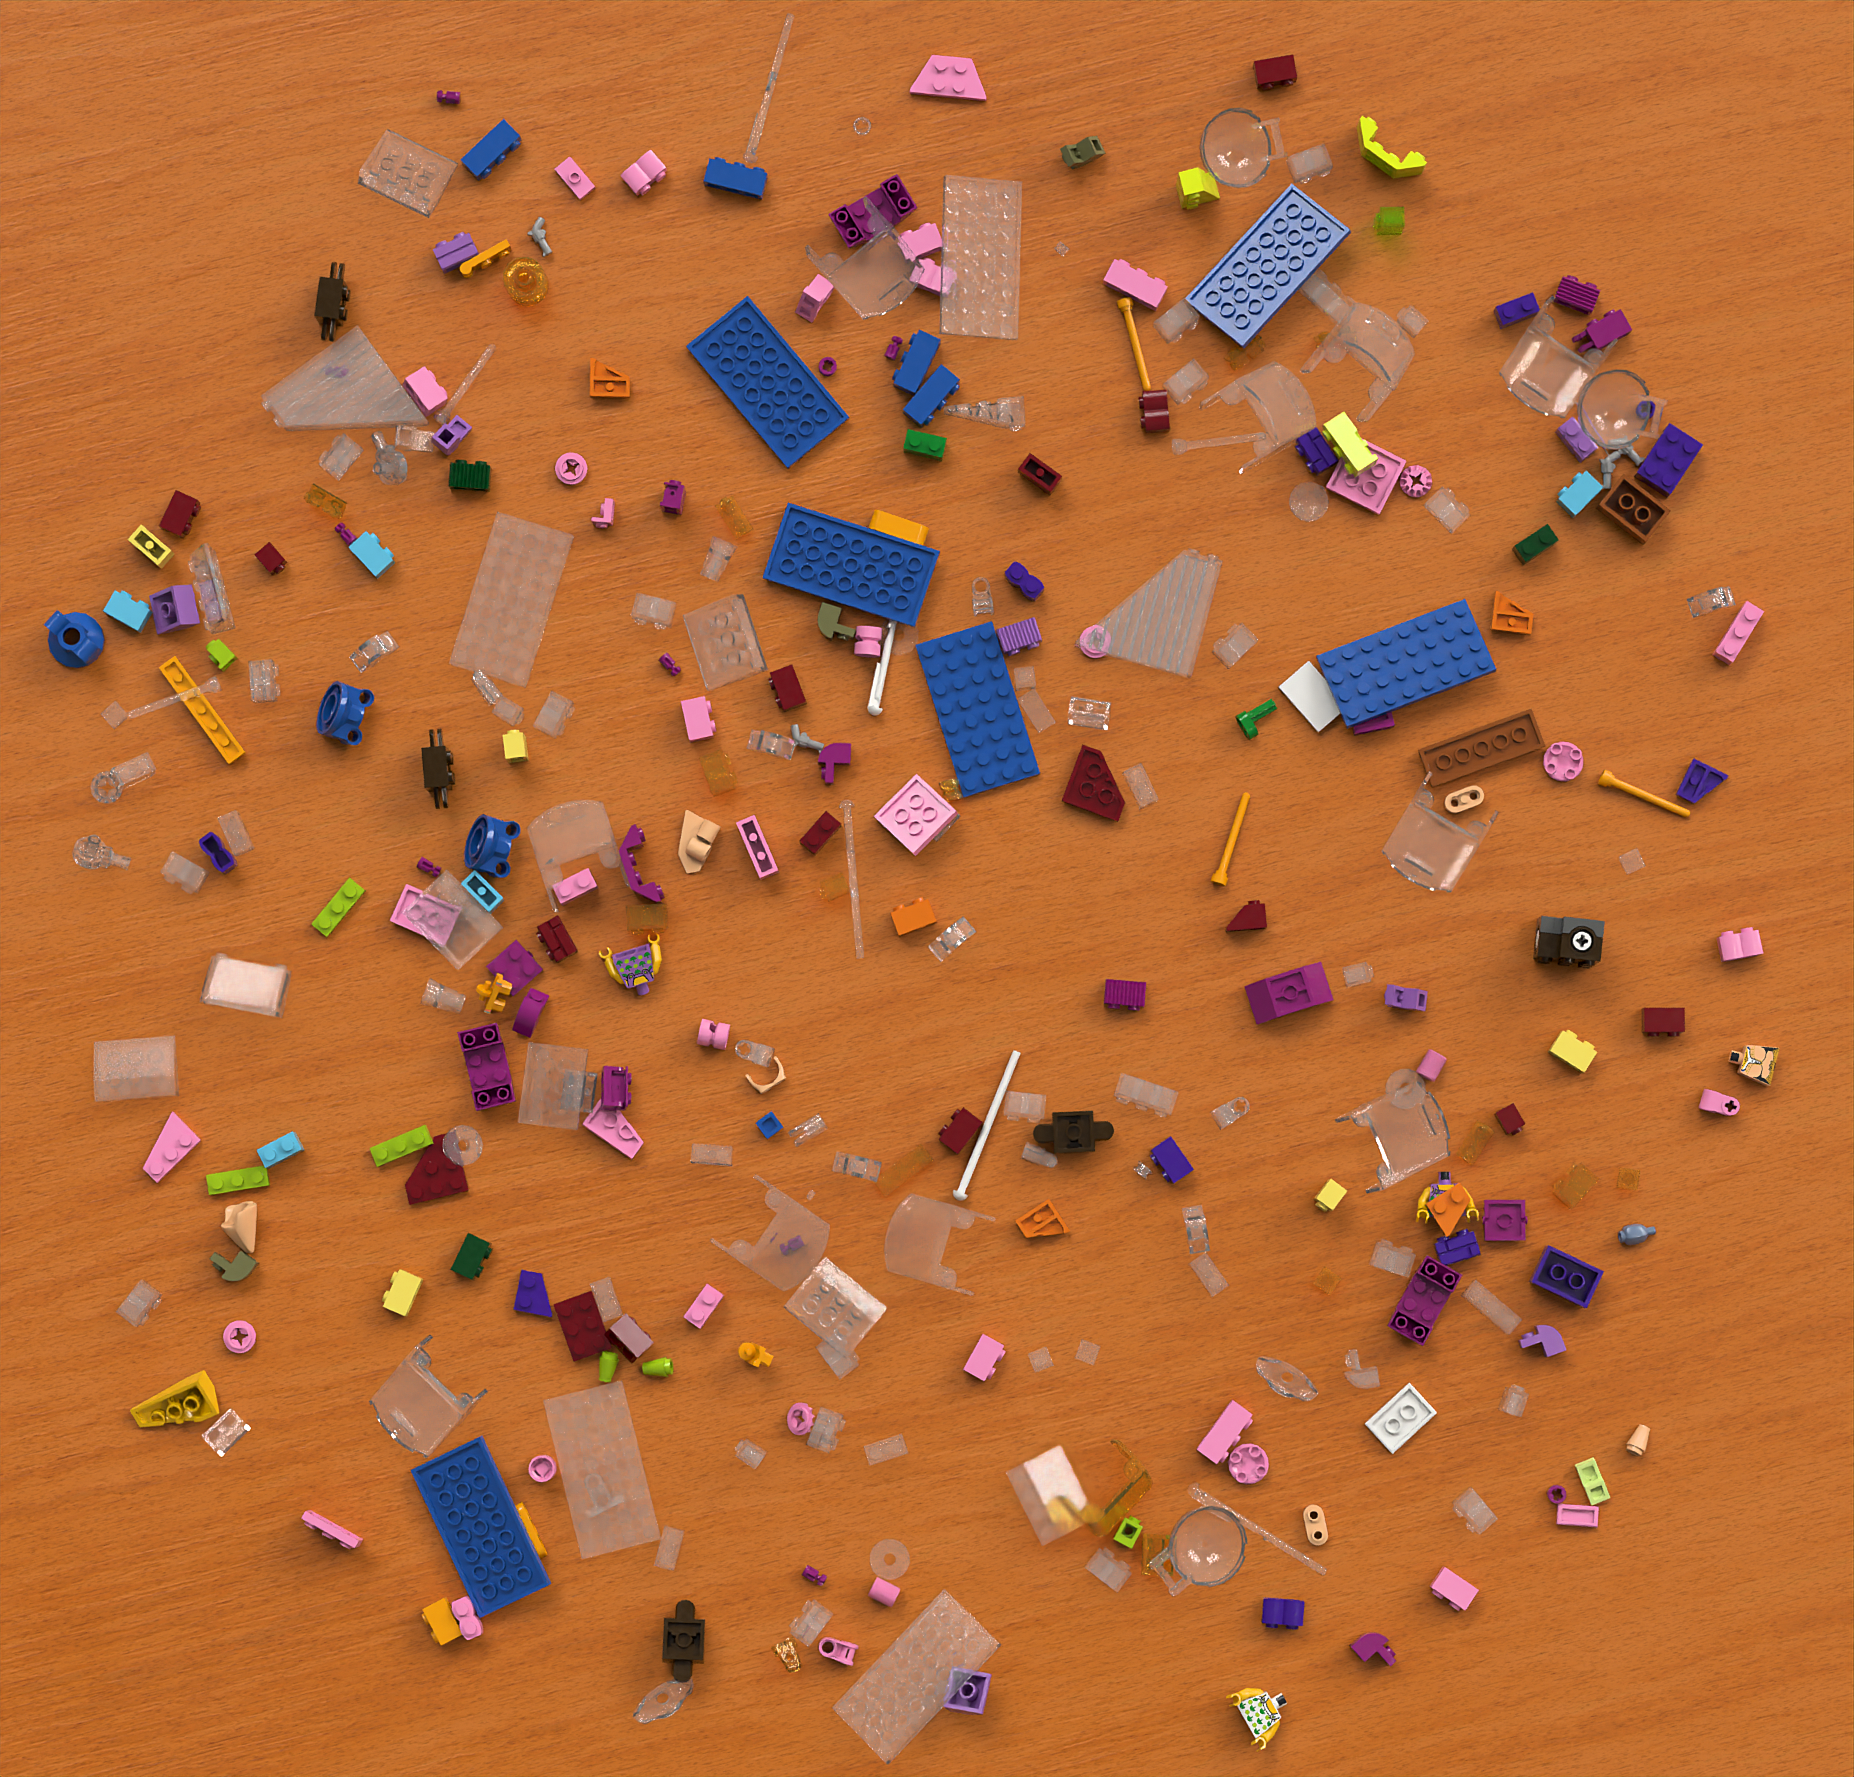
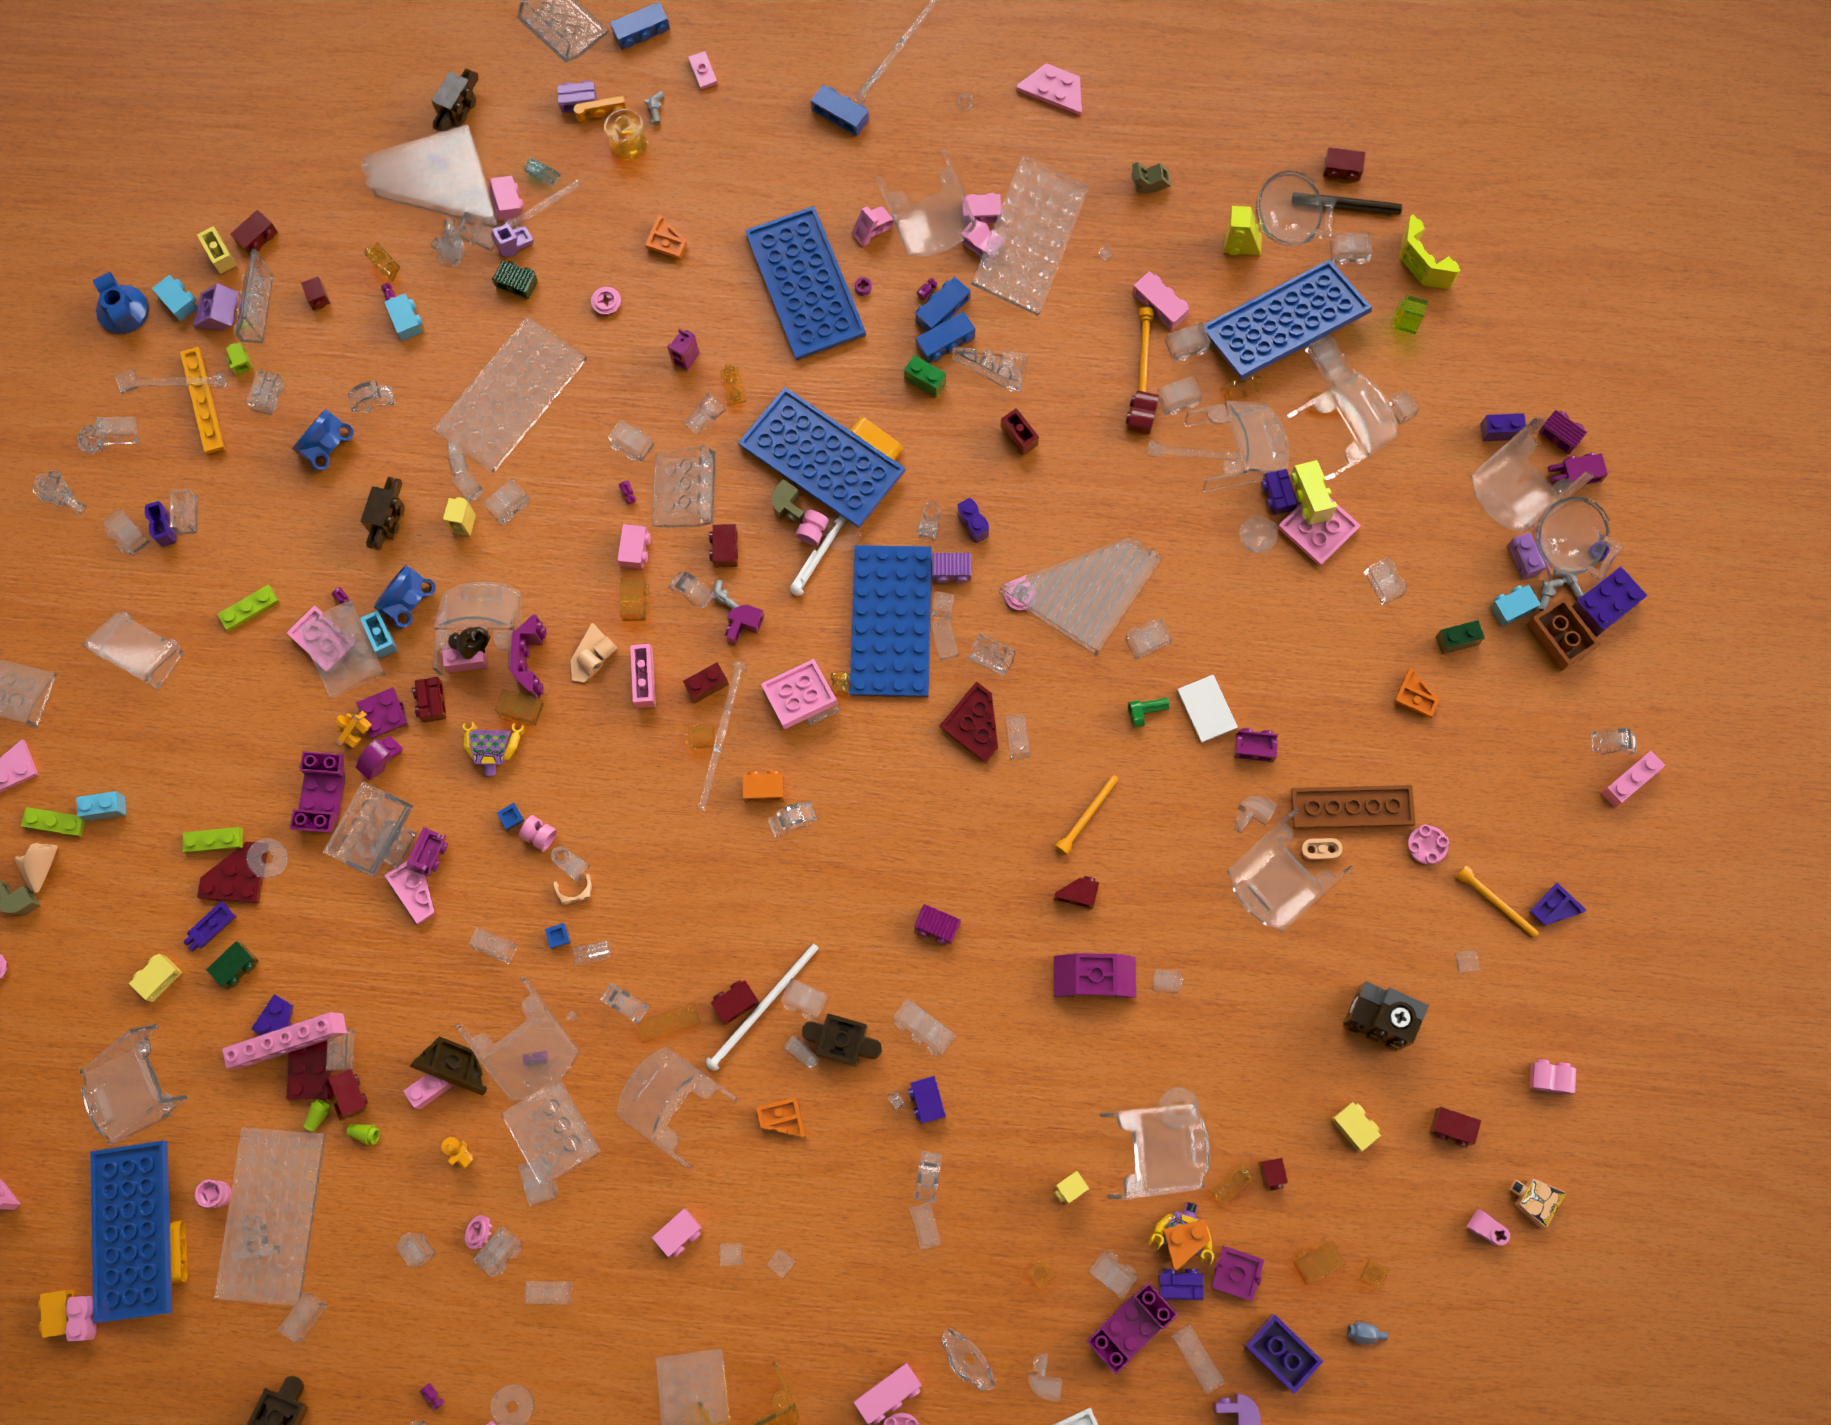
camera: 20 degrees right, 10 degrees down
(340, 456) = (410, 228): clear brick -> none
(433, 1227) = (209, 926): none -> dark purple hinge
(442, 997) = (304, 716): clear plant -> none
(448, 348) = (541, 171): none -> clear light blue hinge
(554, 1309) = (284, 1040): none -> bright pink brick
(580, 873) = (469, 641): none -> dark brown piece
(607, 512) = (622, 347): bright pink bracket -> none
(644, 173) = (762, 82): bright pink brick -> none
(680, 1027) = (510, 816): none -> blue plate
(720, 1277) = (452, 1064): none -> dark brown wing
(890, 199) = (969, 167): magenta slope -> none
(1228, 1114) = (996, 1072): clear piece -> none
(1306, 110) = (1366, 205): none -> dark brown axle
(1390, 779) = (1256, 807): none -> clear brick
(1405, 998) = (1206, 1019): medium lavender brick -> none
(1406, 663) = (1304, 705): blue plate -> none
(1417, 490) = (1363, 555): bright pink gear -> none
(1431, 1065) = (1211, 1093): bright pink piece -> none

